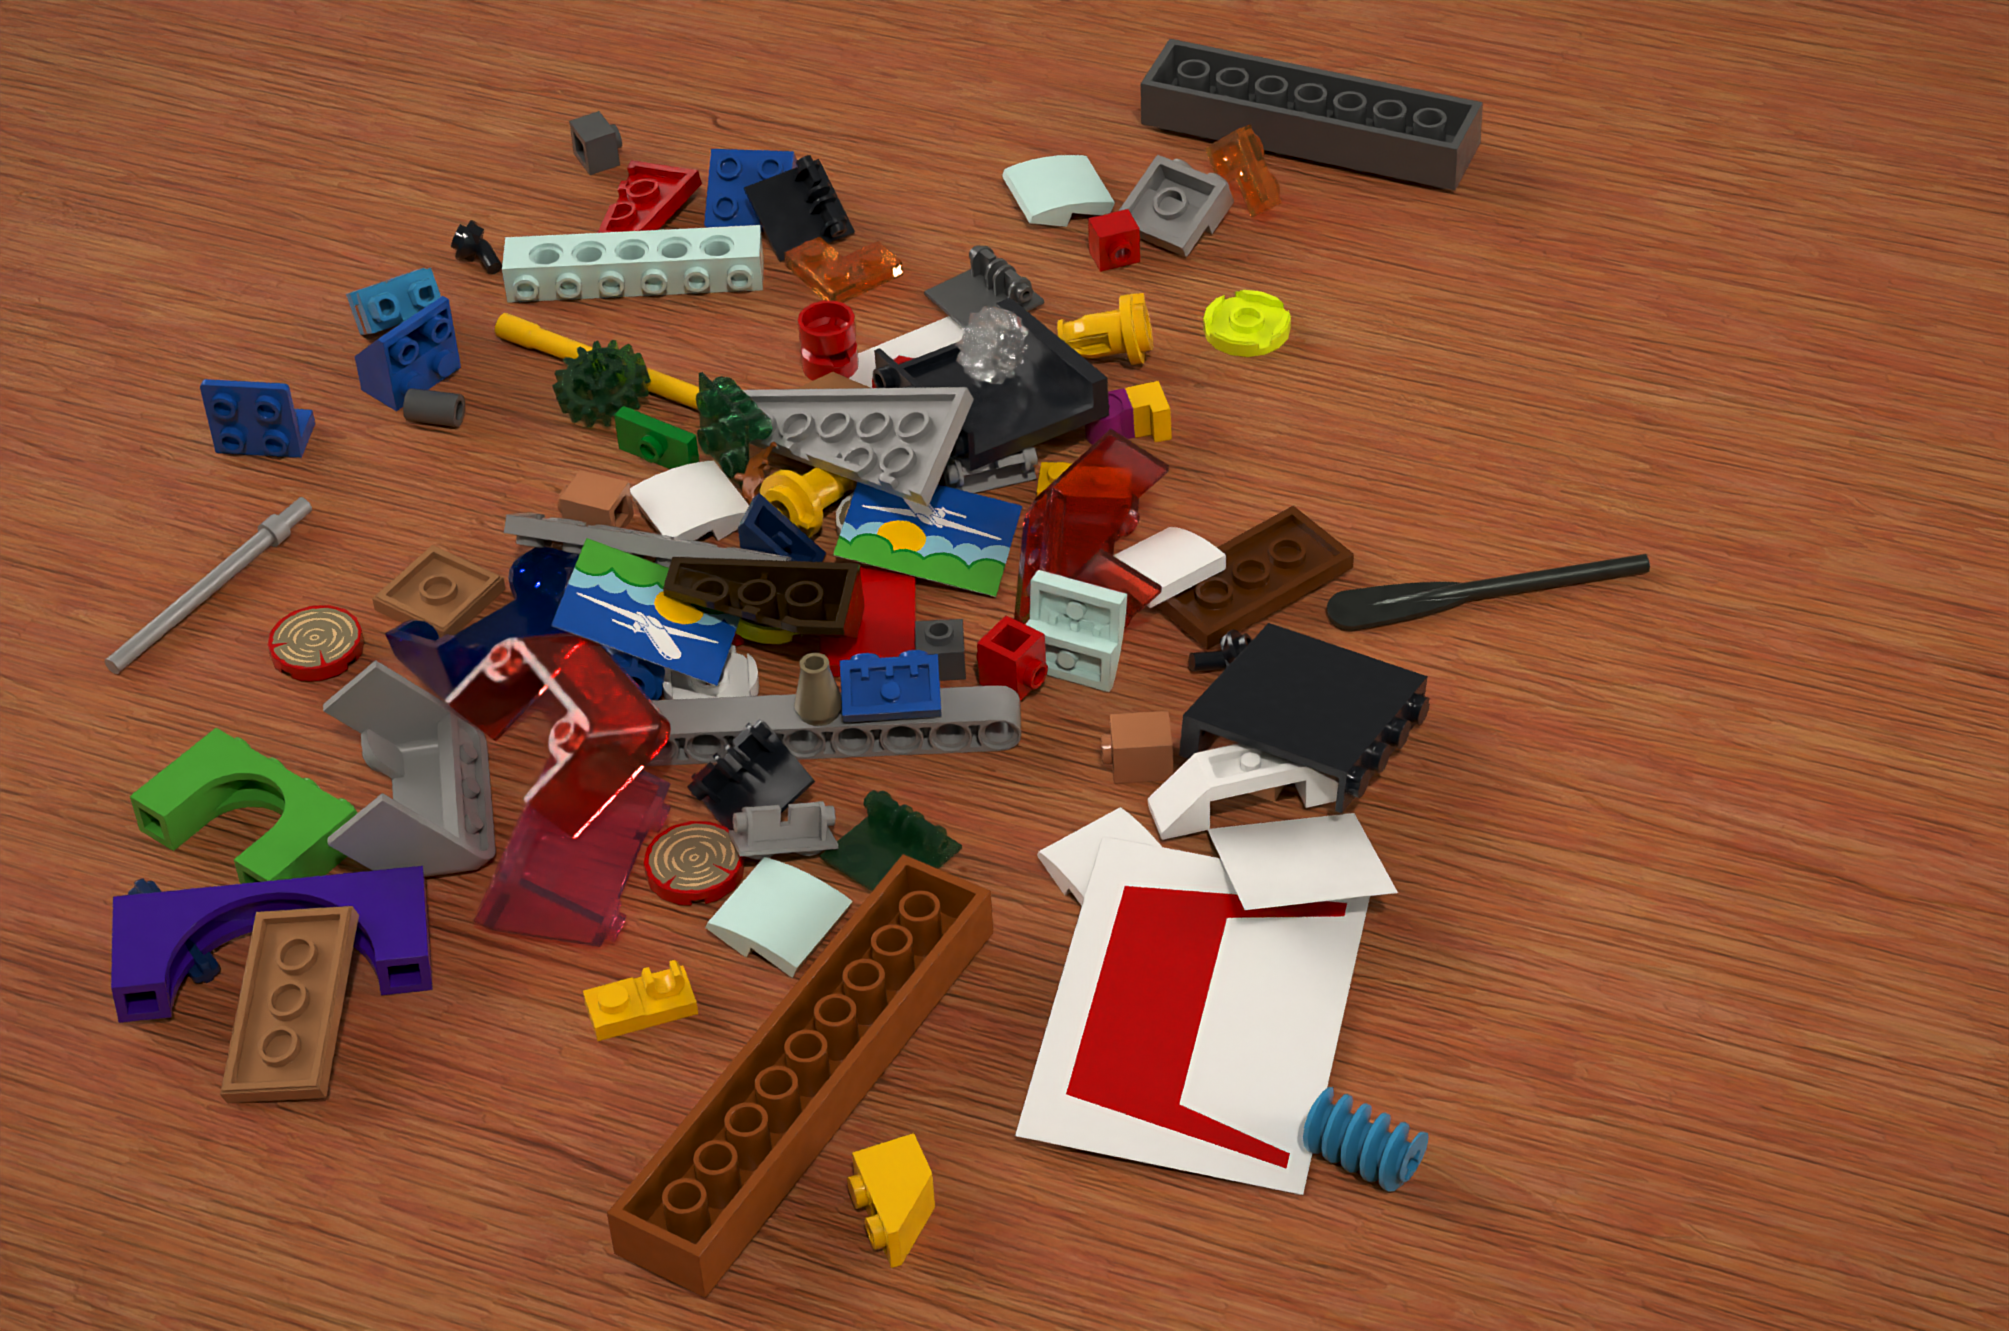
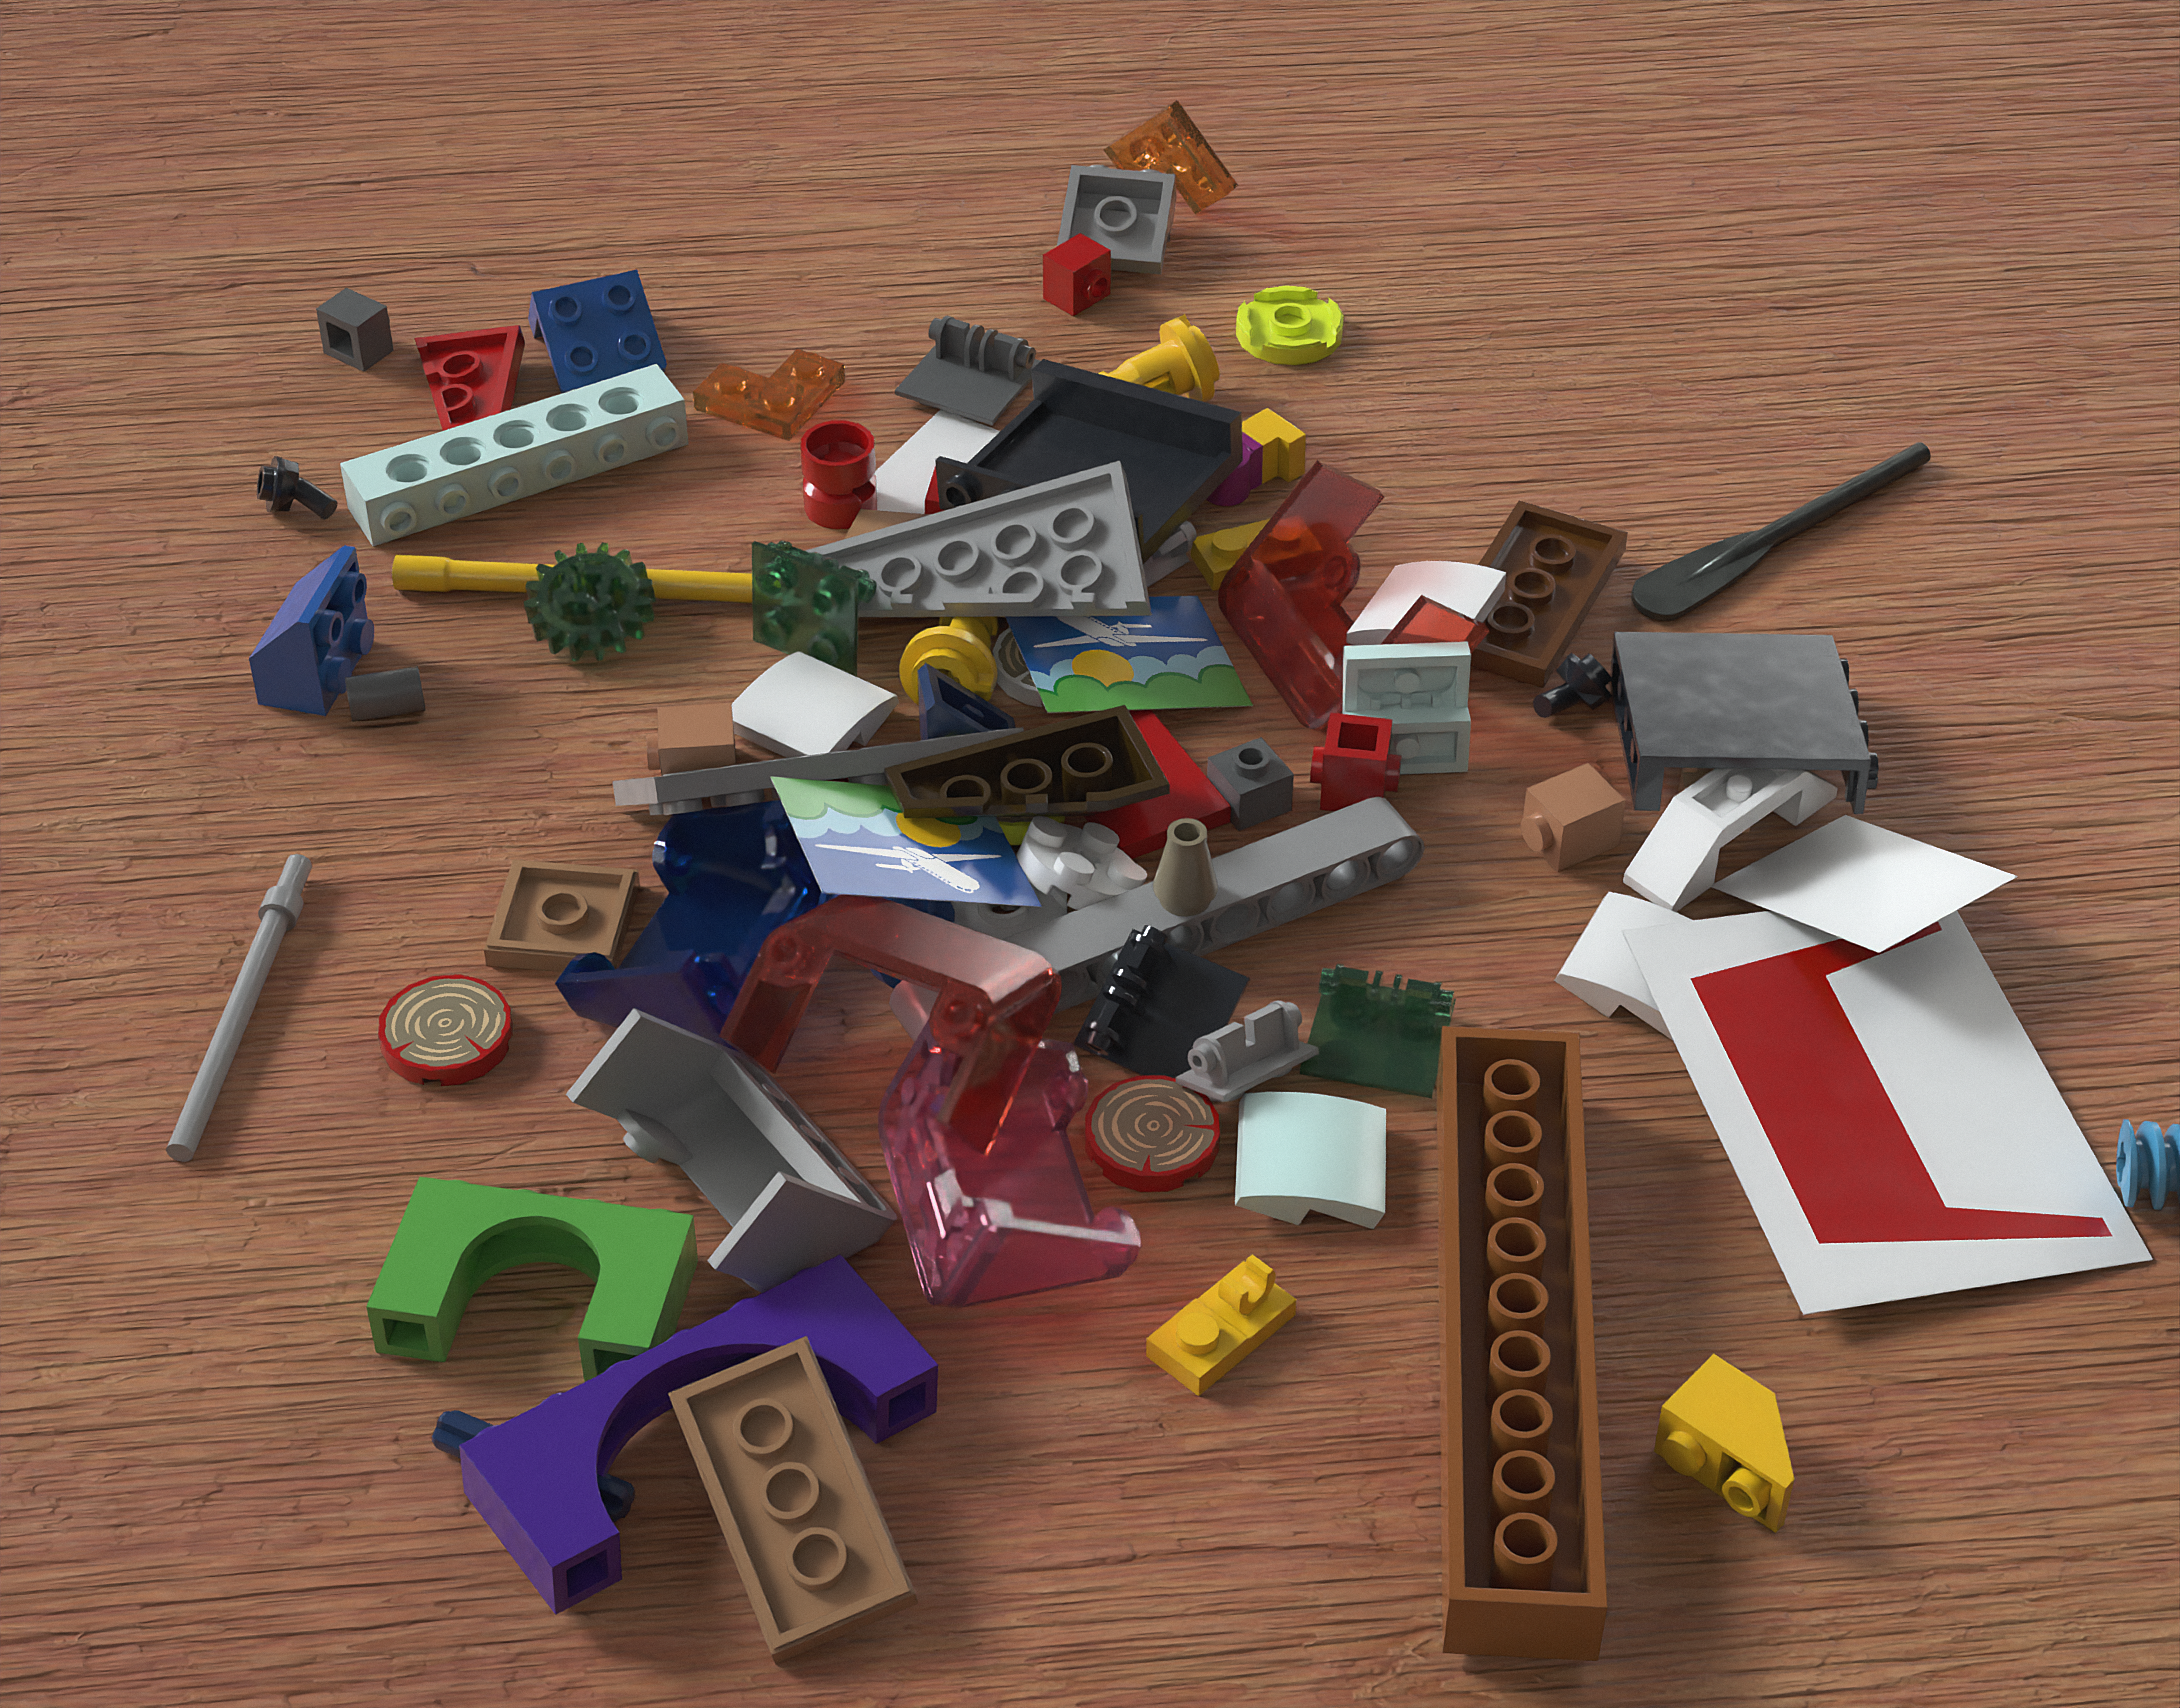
camera: 30 degrees left, 0 degrees up
(255, 418) = (165, 773): blue bracket -> none
(392, 302) = (245, 579): dark azure hips -> none
(655, 439) = (711, 648): green plate -> none
(754, 473) = (875, 653): dark orange piece -> none
(759, 652) = (1077, 861): none -> white plate
(799, 207) = (681, 332): black hinge -> none
(890, 687) = (1268, 836): blue bracket -> none
(992, 345) = (1073, 415): clear gear -> none
(1057, 187) = (962, 238): light aqua slope -> none
(1313, 113) = (1223, 78): dark grey brick -> none

